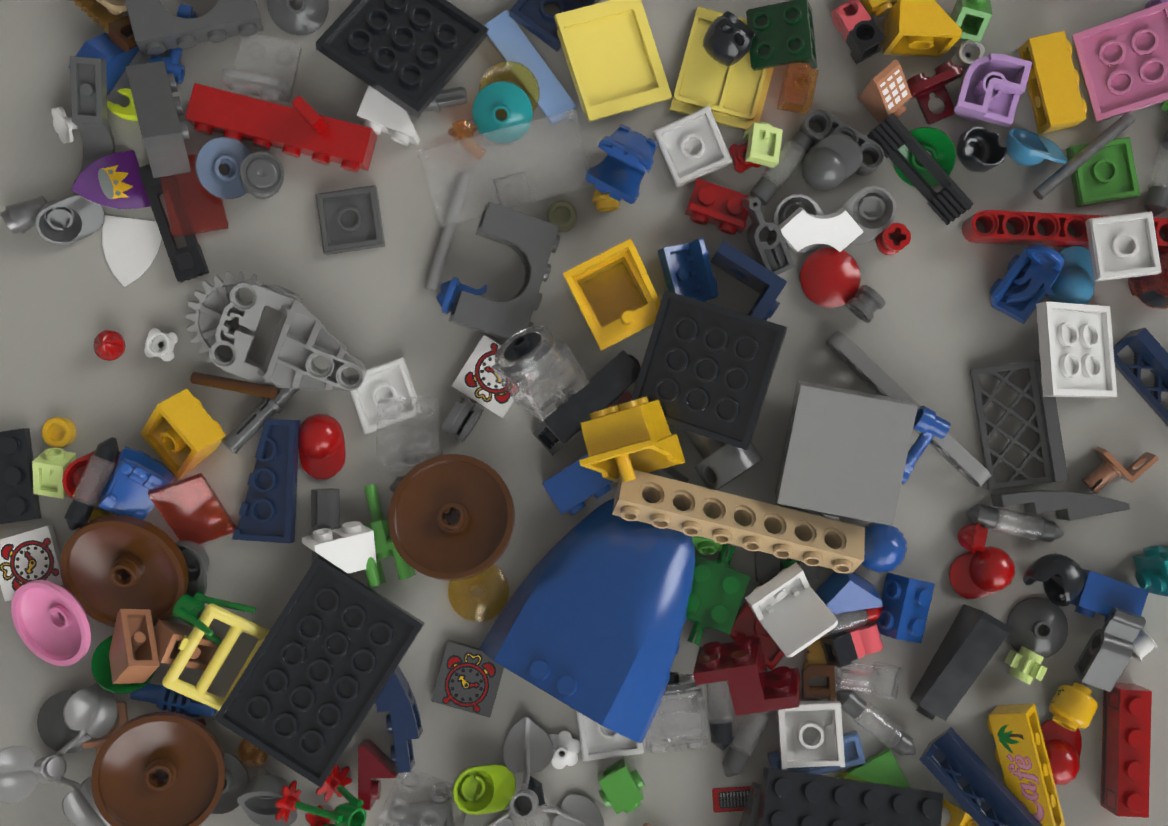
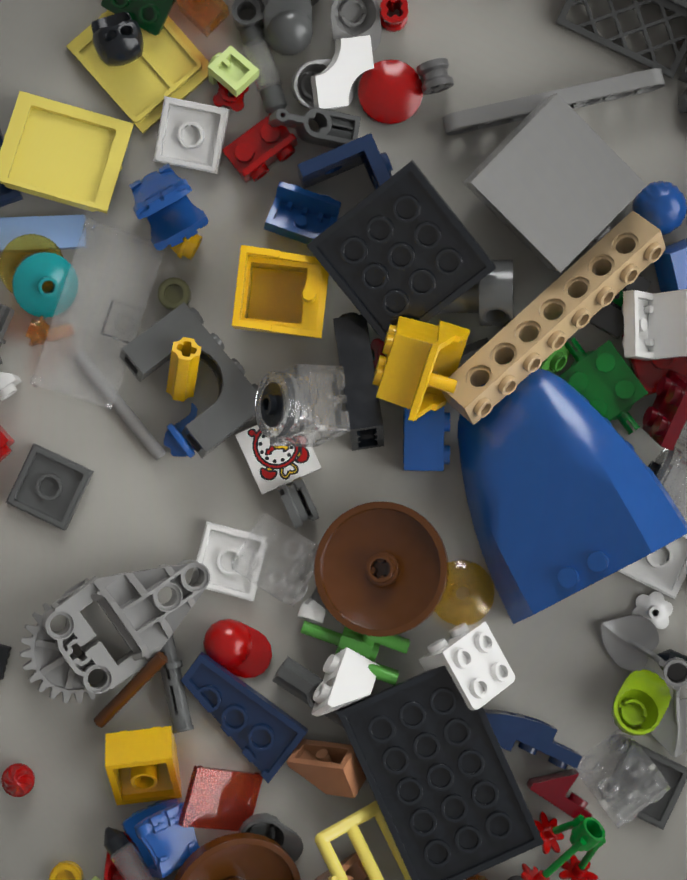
camera: 55 degrees left, 0 degrees up
(152, 342) = (39, 733): white plate -> none
(190, 609) = (309, 859): green plant -> none
(273, 577) = (328, 767): none -> nougat slope
(386, 484) = (311, 611): none -> white hinge
(425, 637) = (472, 662): none -> white bracket
(467, 679) = (536, 652): dark grey tile -> none
(506, 260) = (183, 369): none -> yellow axle
(929, 426) = (581, 93): blue brick -> none

